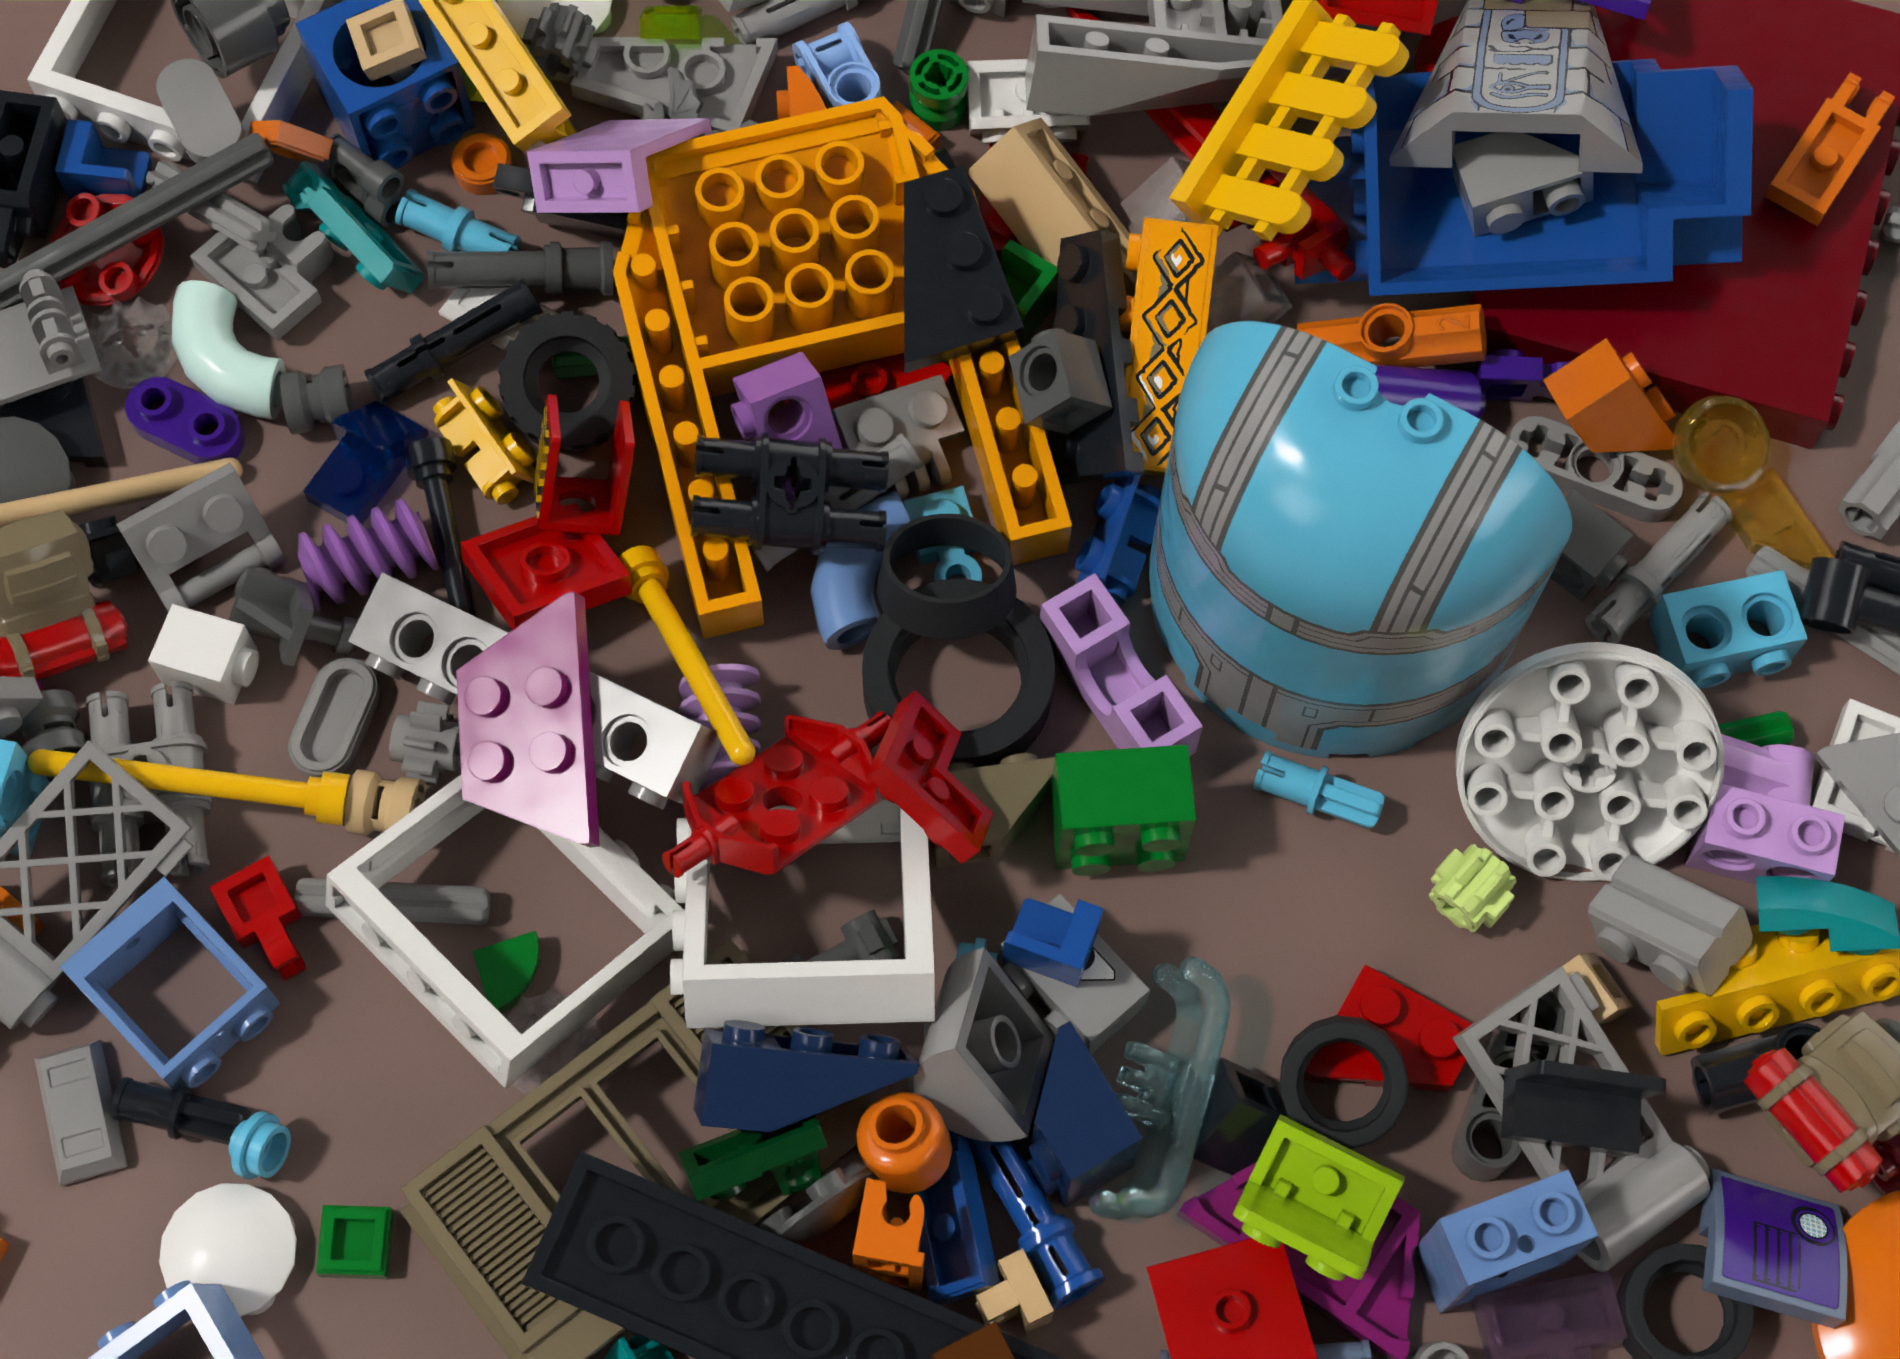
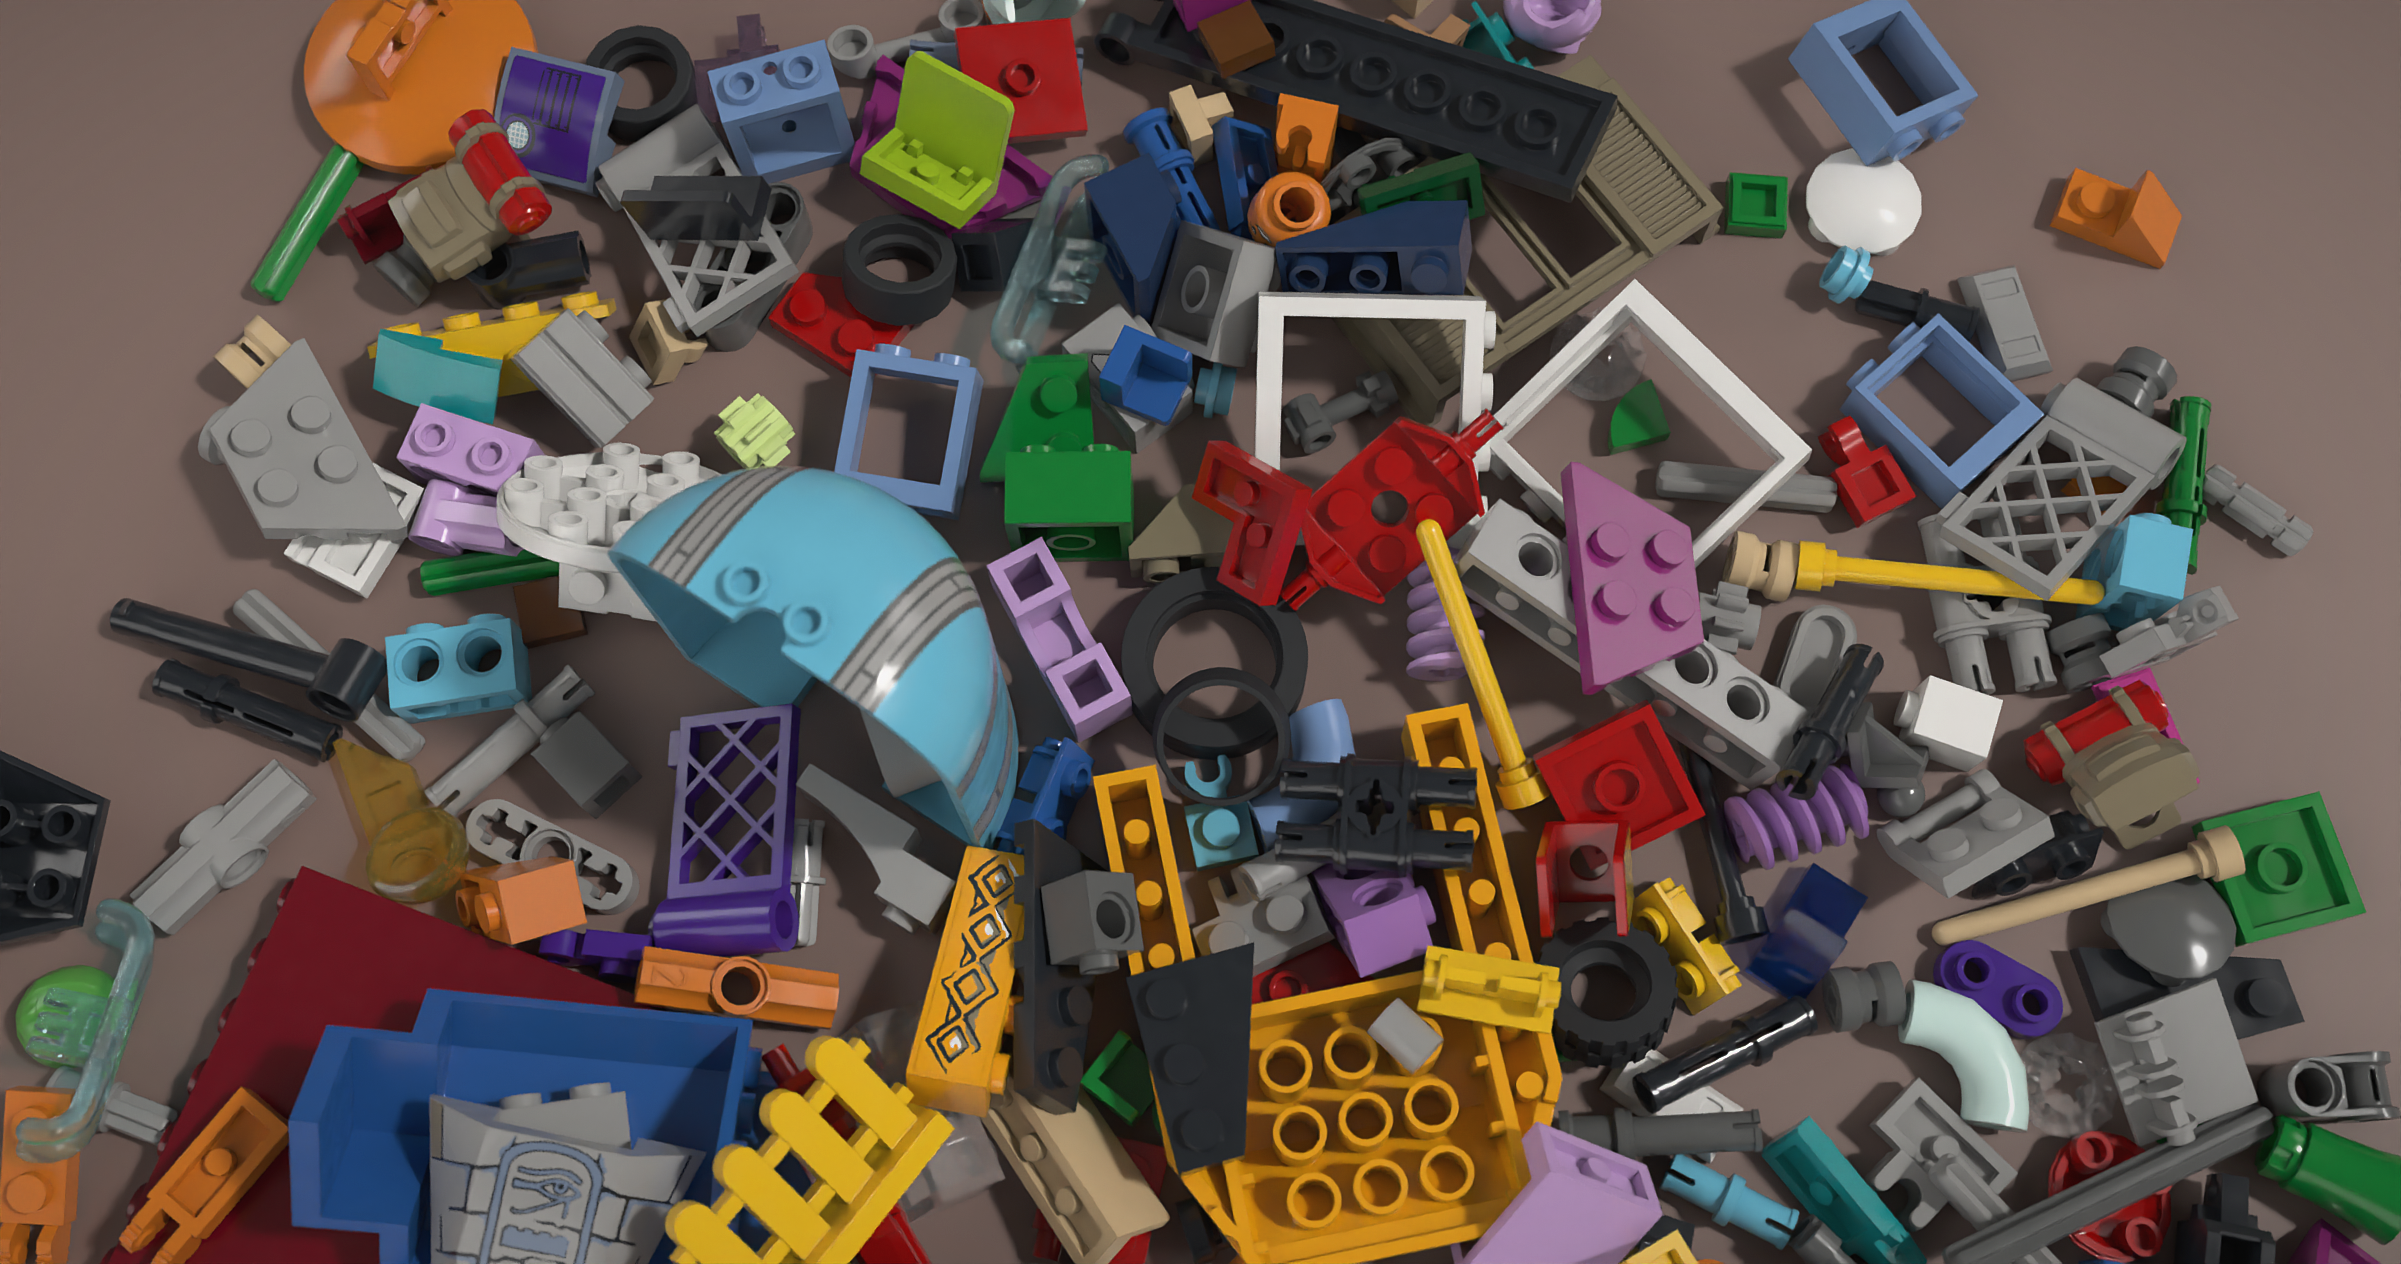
camera: 175 degrees left, 5 degrees up
(340, 601) = (1821, 738): none -> black pin
(680, 335) = (1489, 989): none -> yellow hinge
(759, 288) = (1405, 1035): none -> light grey hinge
(1158, 910) = (1045, 409): none -> green wing
(1316, 835) = (946, 369): none -> medium blue window

